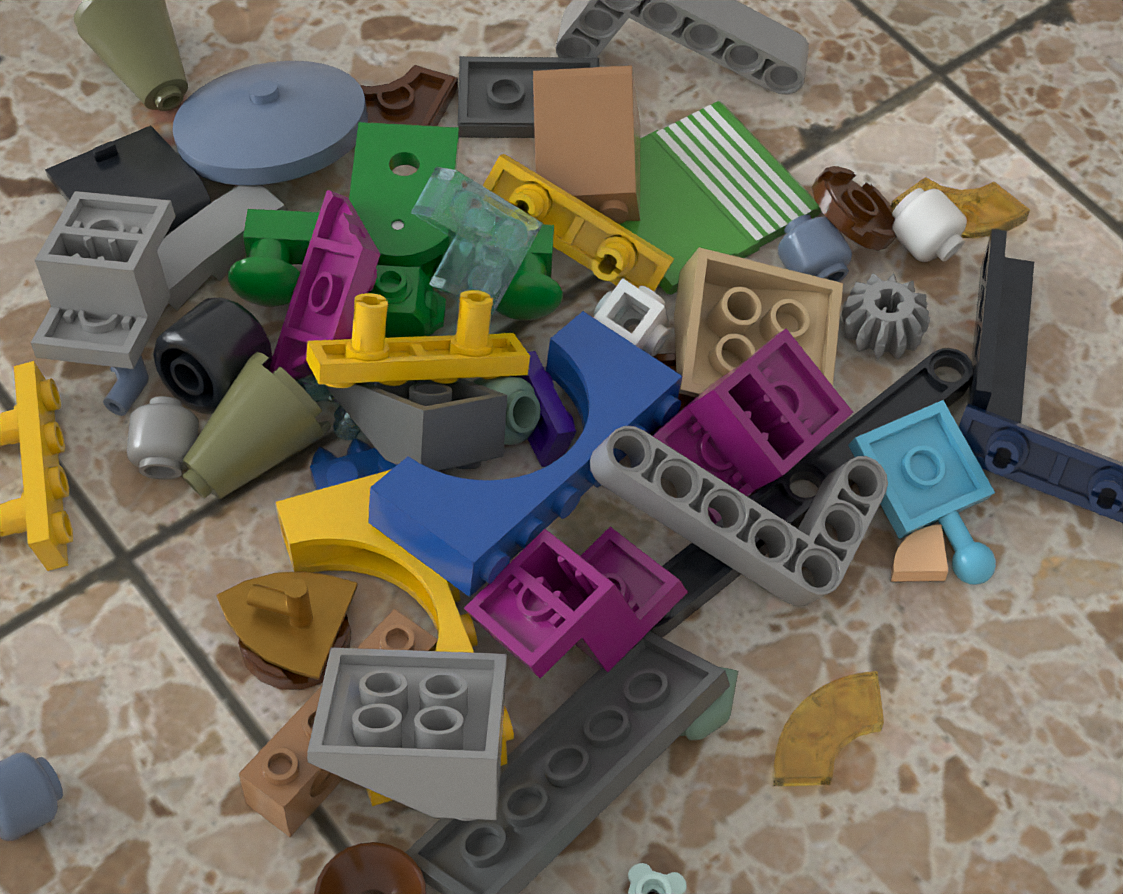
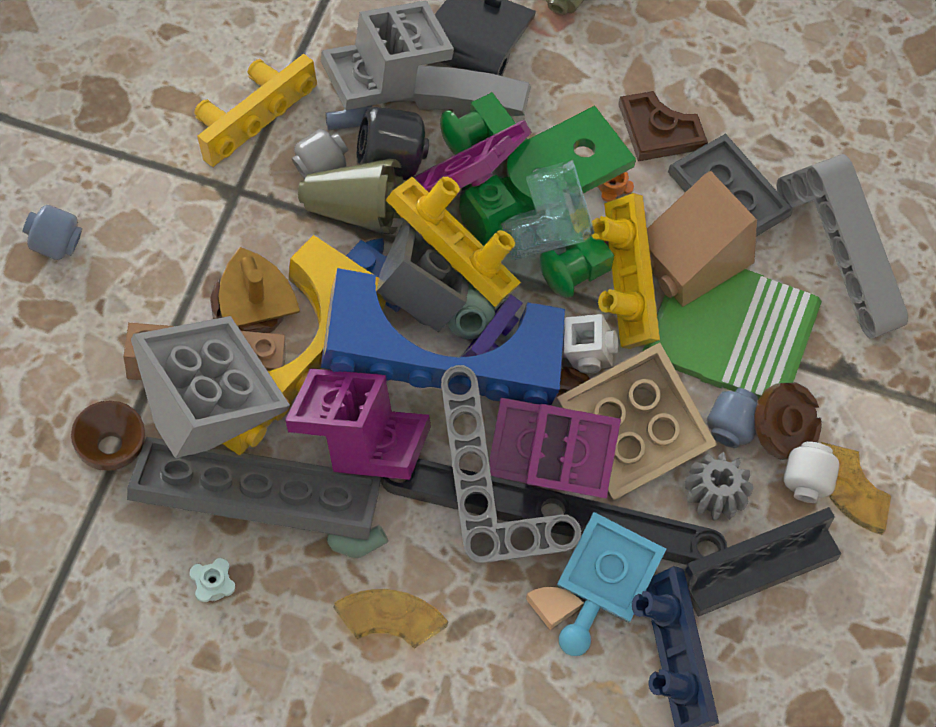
camera: 50 degrees right, 5 degrees up
(270, 122) = (581, 64): sand blue dish -> none

